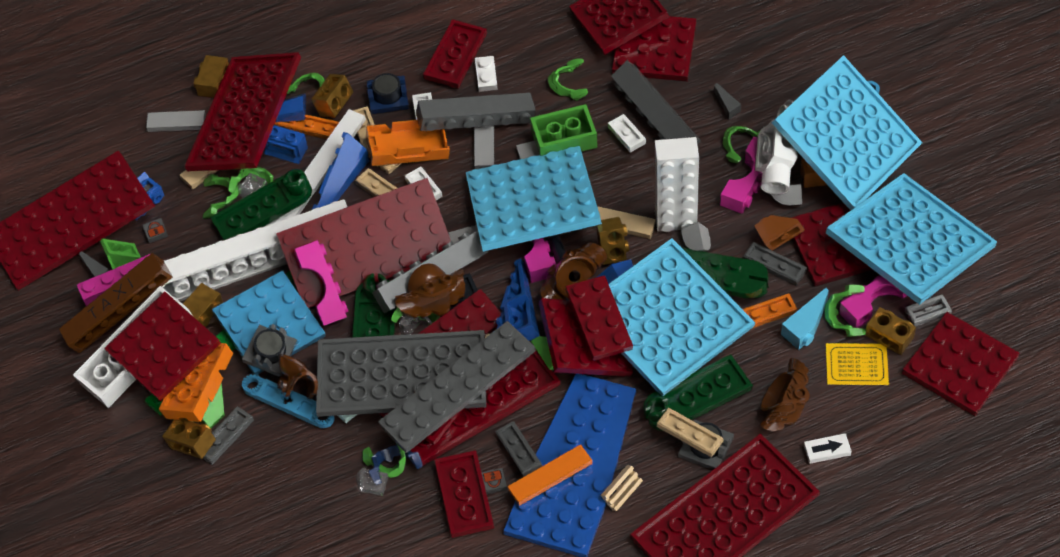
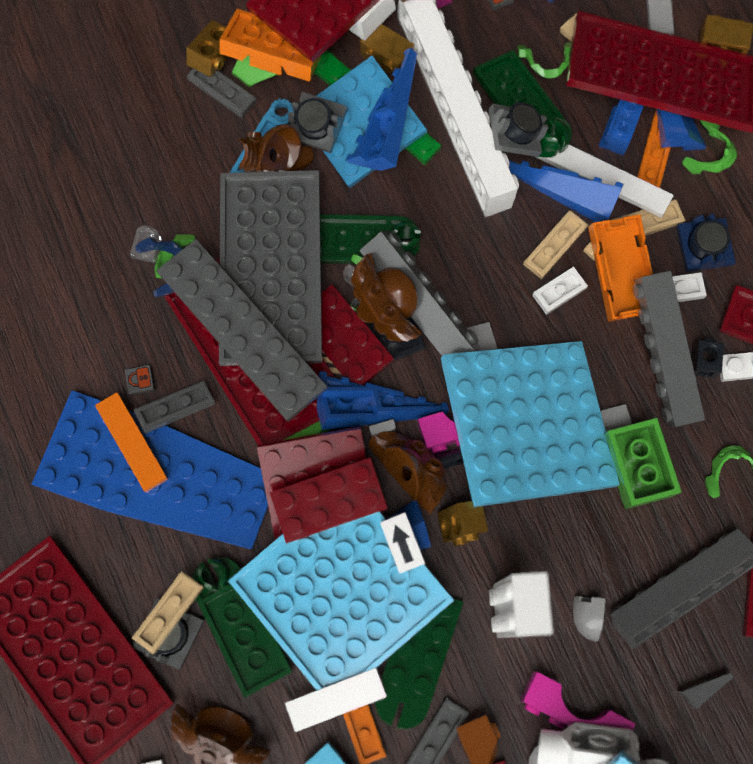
camera: 85 degrees right, 20 degrees up
(251, 184) = (558, 91): clear plate -> none
(261, 172) = (581, 97): bright green helmet -> none
(289, 299) = (382, 139): none -> blue wedge
(291, 199) = (517, 128): none -> piece
(312, 258) = (425, 154): dark pink arch -> none
(332, 95) = (695, 175): pearl gold brick -> none
(368, 238) = (463, 221): dark red plate -> none
(464, 494) = (122, 345): dark red plate -> none
(480, 88) = (700, 365): none -> black brick
(483, 146) = (621, 365): light grey tile -> none
(536, 297) = (382, 427): none -> light grey tile
(624, 490) = (113, 527): tan tile -> none
(627, 133) = (647, 548): white plate -> none
(630, 267) = (402, 543): none -> white tile
(635, 224) = (503, 541): tan tile -> none
(696, 237) = (473, 637): light grey brick -> none
(732, 155) = (653, 696): bright green helmet -> none
(750, 318) = (335, 700): none -> white sticker

